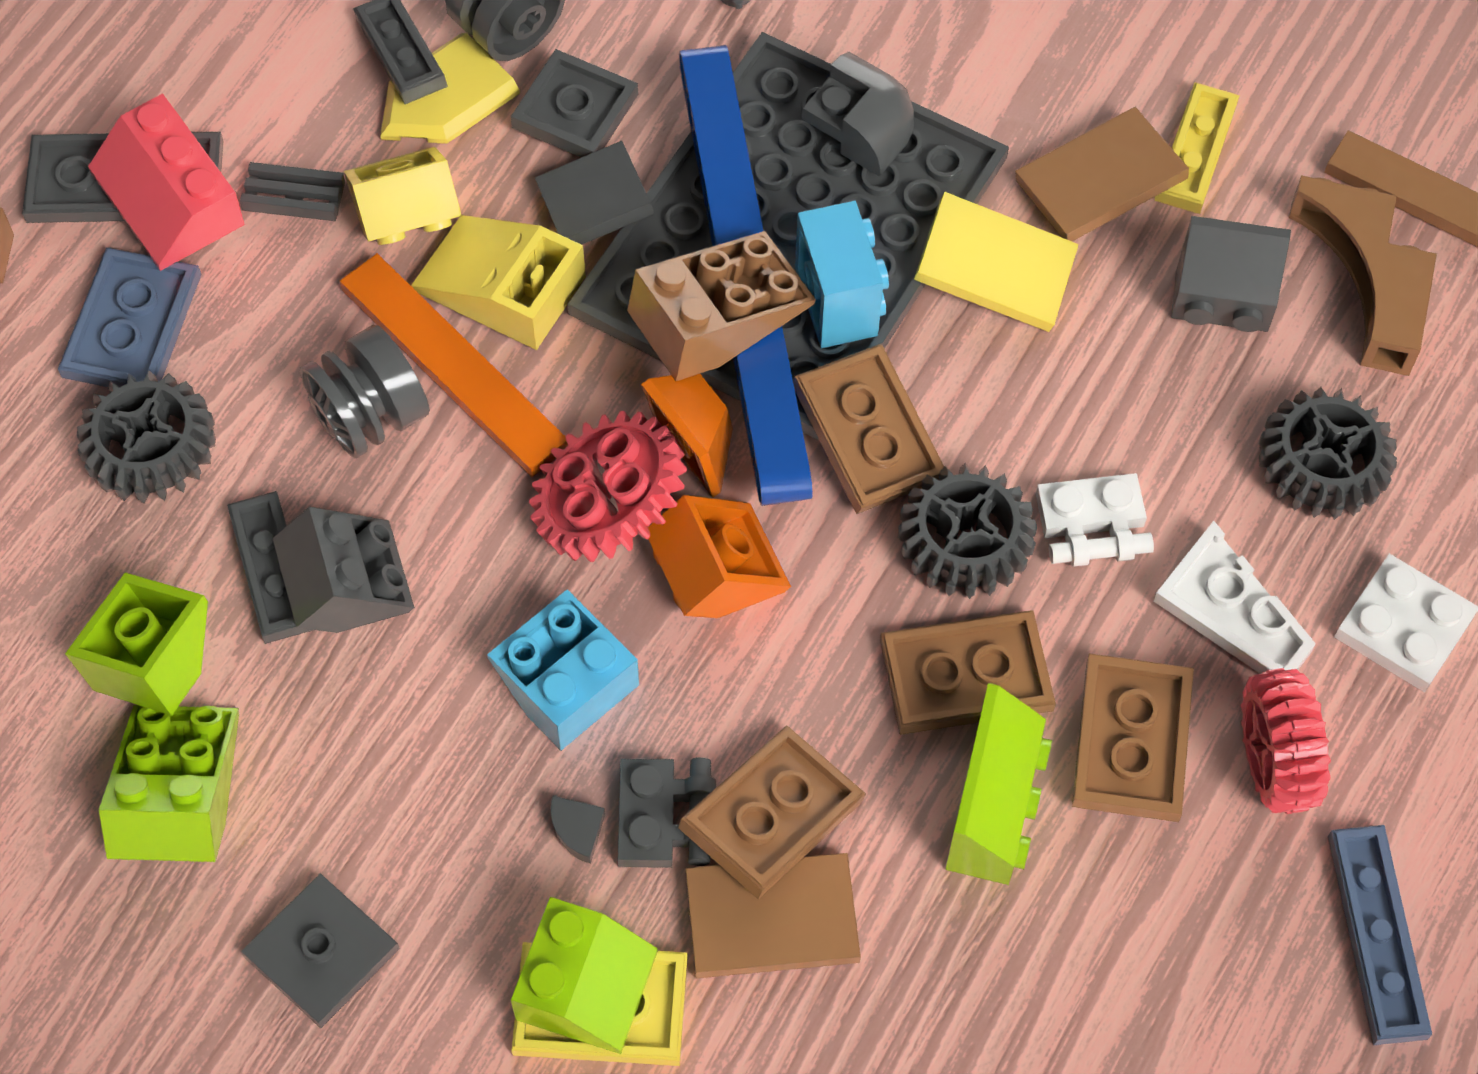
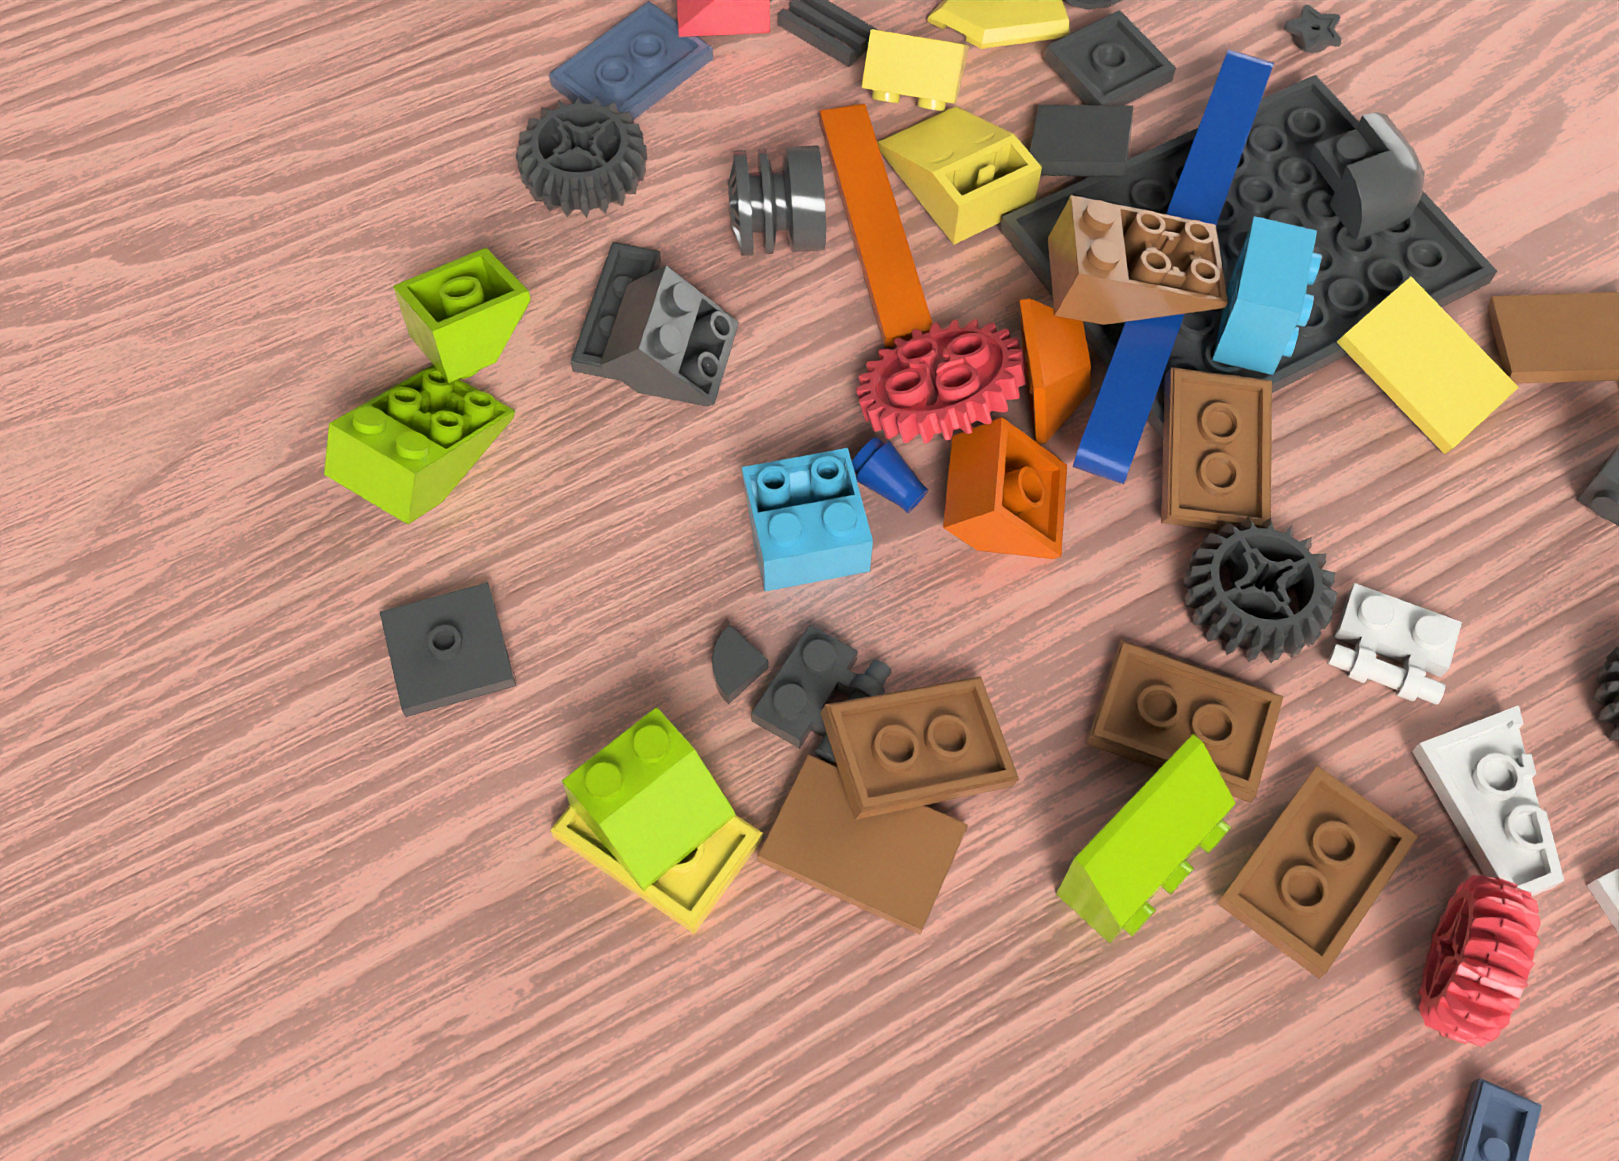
camera: 30 degrees right, 0 degrees up
(608, 592) = (887, 474): none -> blue cone

